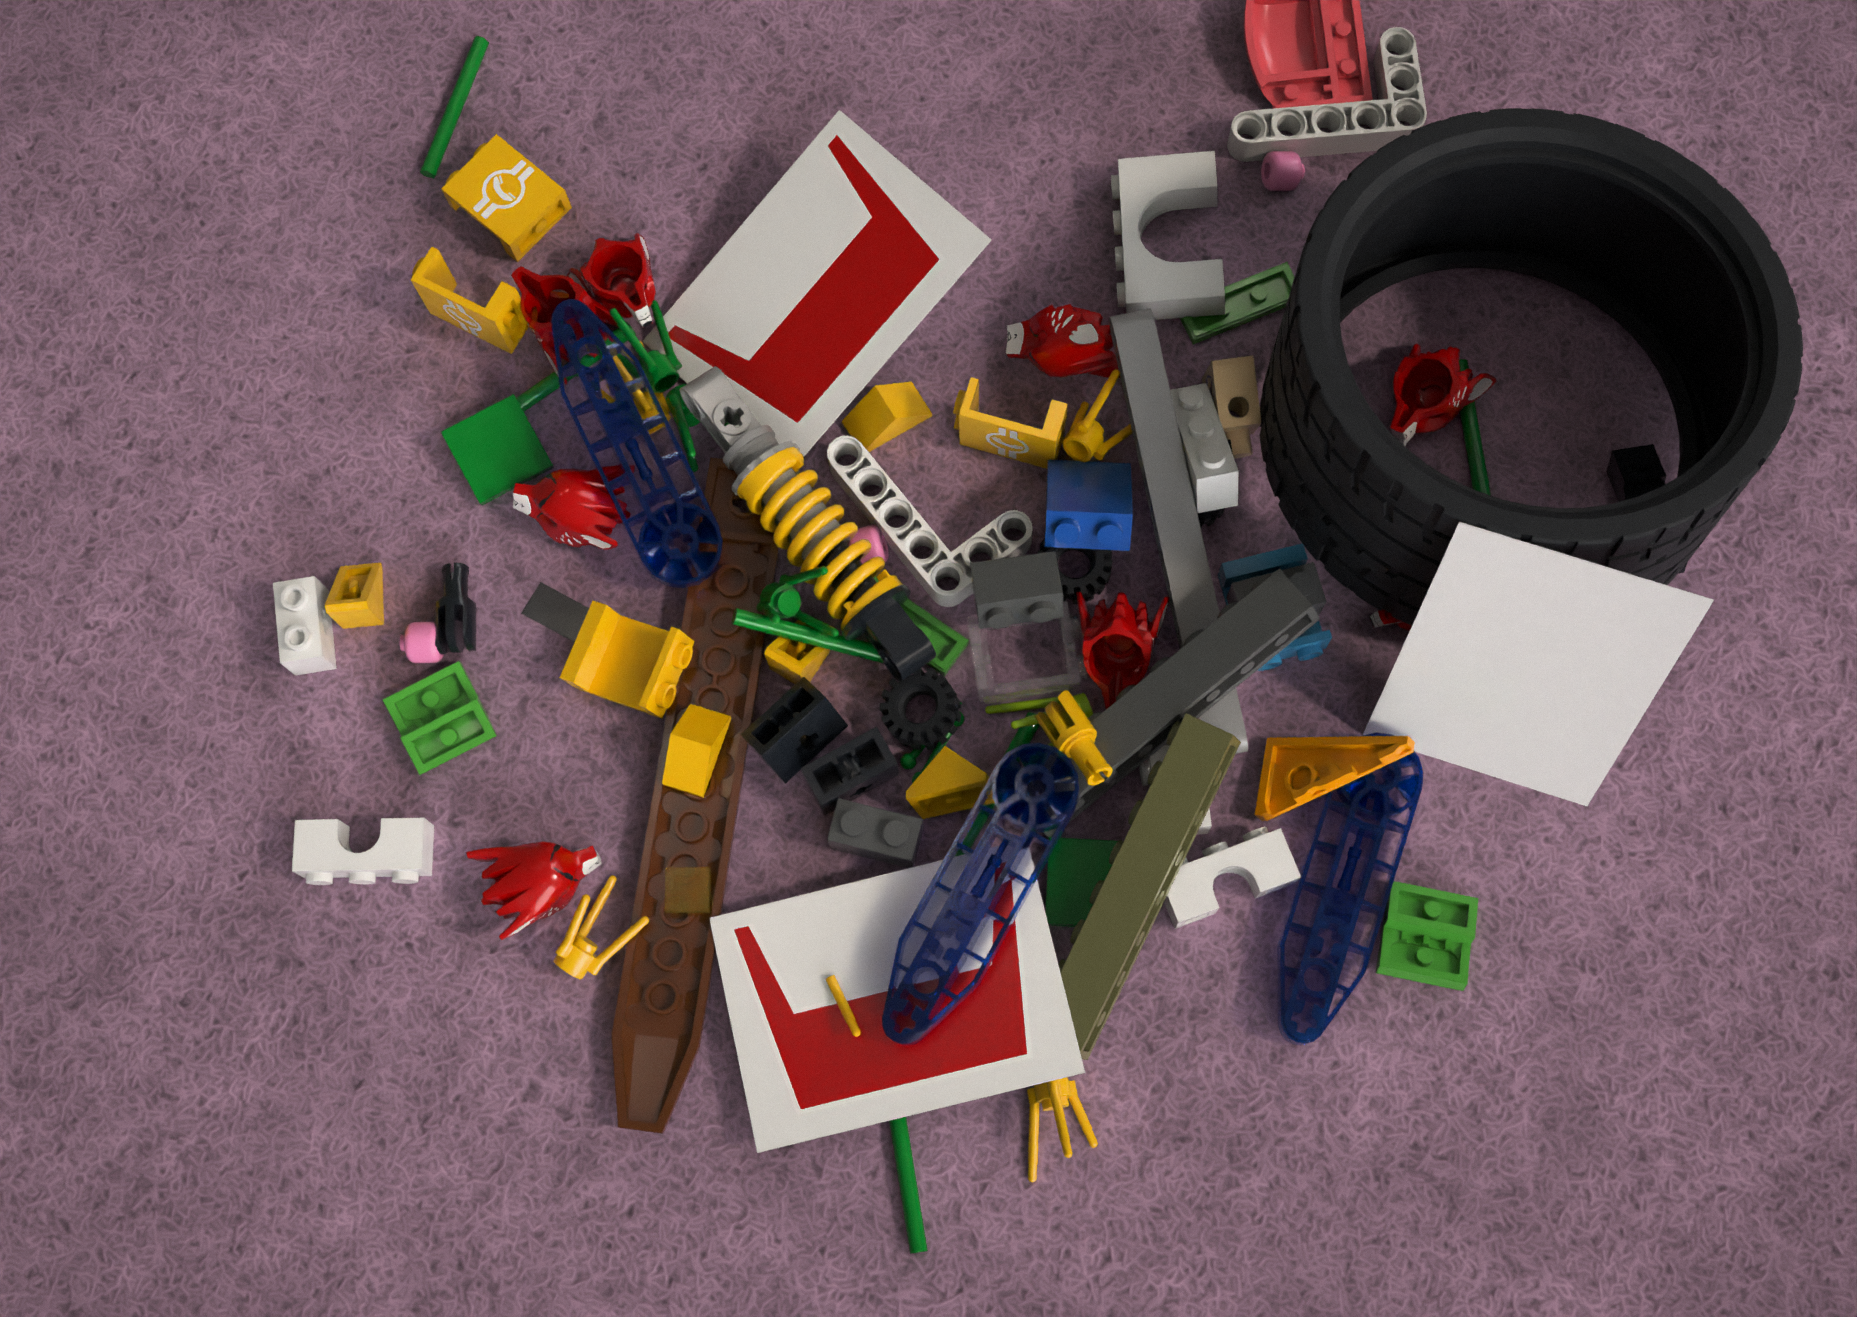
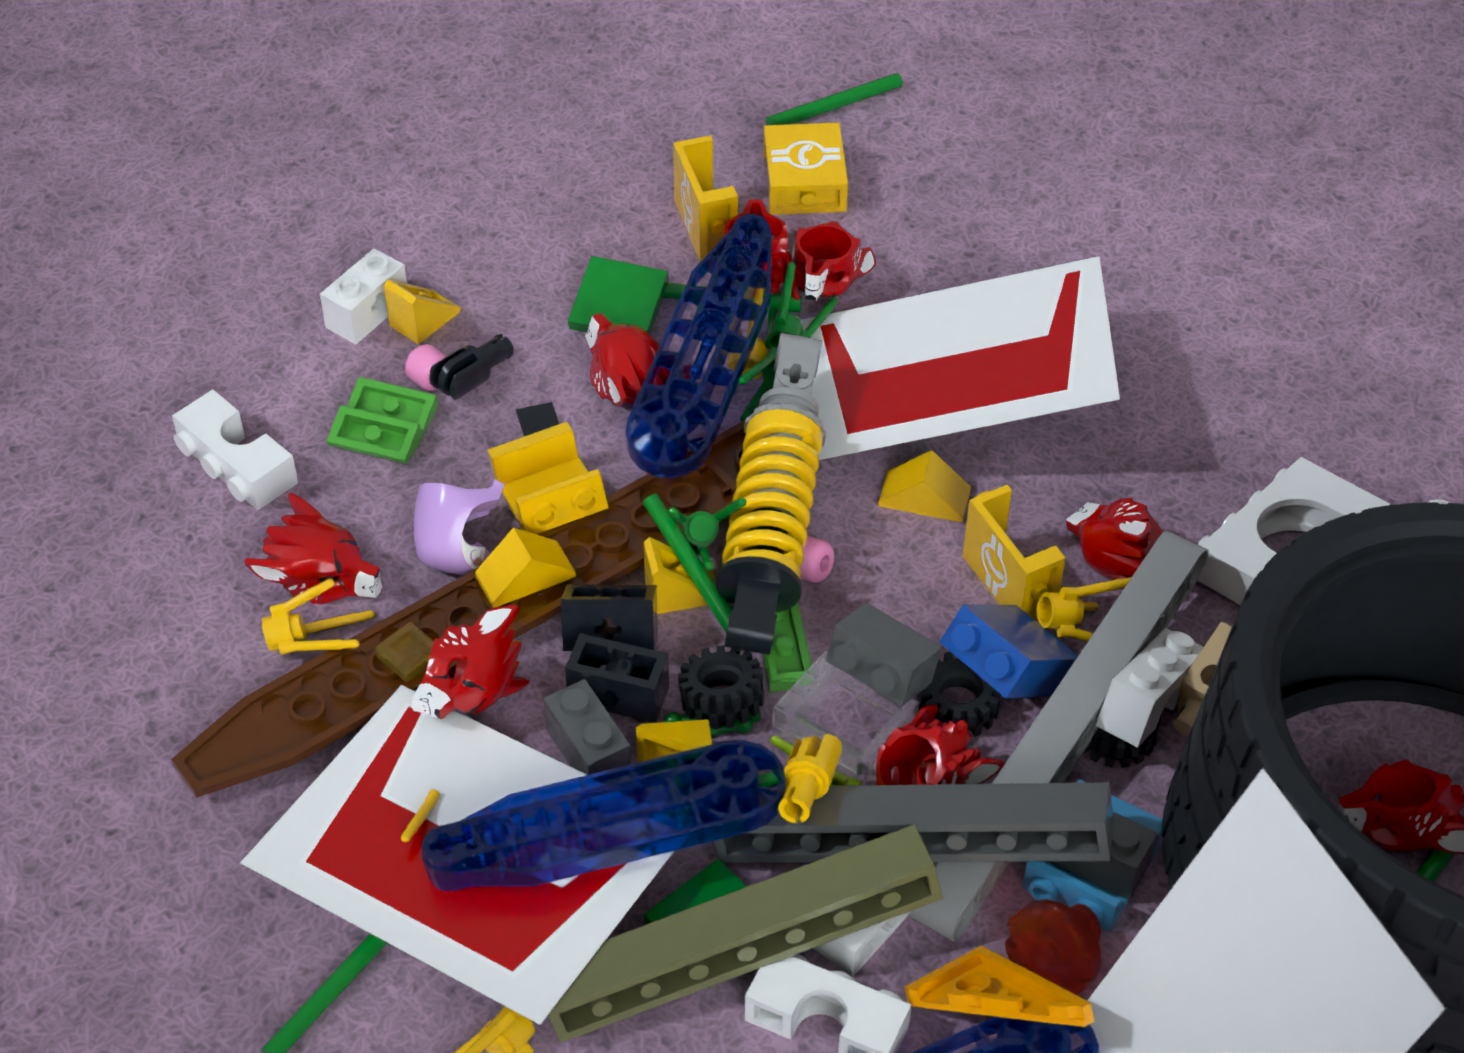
camera: 40 degrees right, 25 degrees down
(598, 760) = (440, 521): none -> lavender piece
(755, 866) = (483, 667): none -> red piece
(916, 531) = (851, 562): white beam -> none
(1322, 699) = (1056, 943): none -> clear red tile

